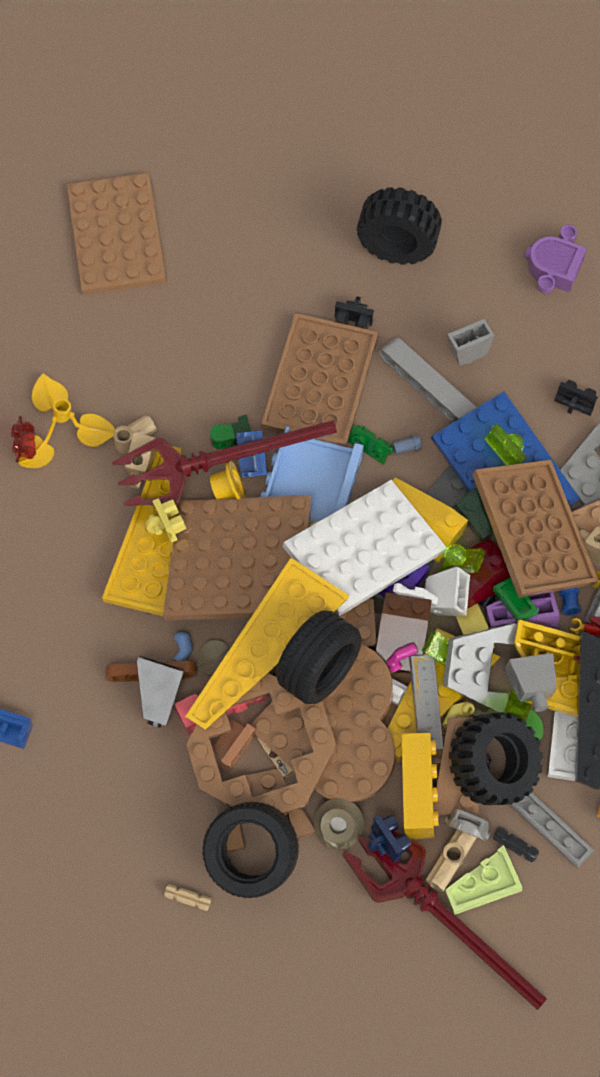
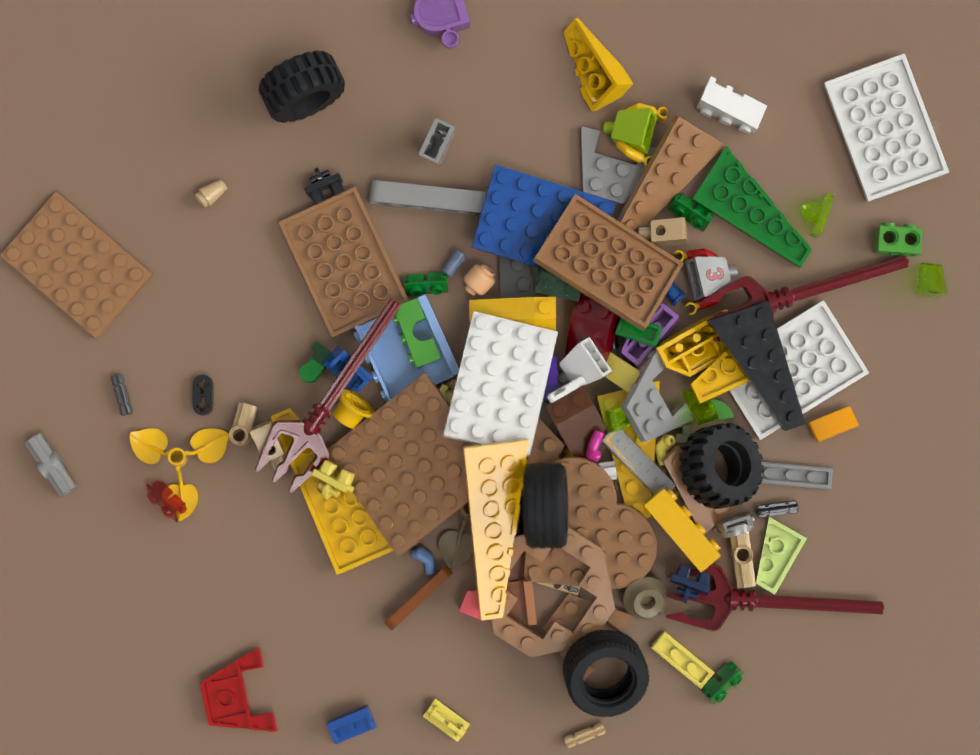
camera: 40 degrees left, 20 degrees up
(62, 344) = (121, 394): none -> dark grey axle
(84, 787) = (446, 720): none -> light yellow hinge
(121, 389) = (197, 395): none -> black beam
(158, 689) = (438, 609): slope -> none
(262, 257) = (210, 193): none -> tan cone
(326, 905) = (682, 659): none -> light yellow tile
(335, 452) = (421, 352): none -> bright green arch
(356, 953) = (730, 678): none -> green hinge
(416, 470) = (479, 279): none -> light nougat head
(466, 559) = (576, 330): clear neon green tile -> none
(506, 445) = (537, 212): clear neon green tile -> none
(533, 679) = (702, 385): light grey torso -> none
(575, 398) = (549, 121): black hips -> none

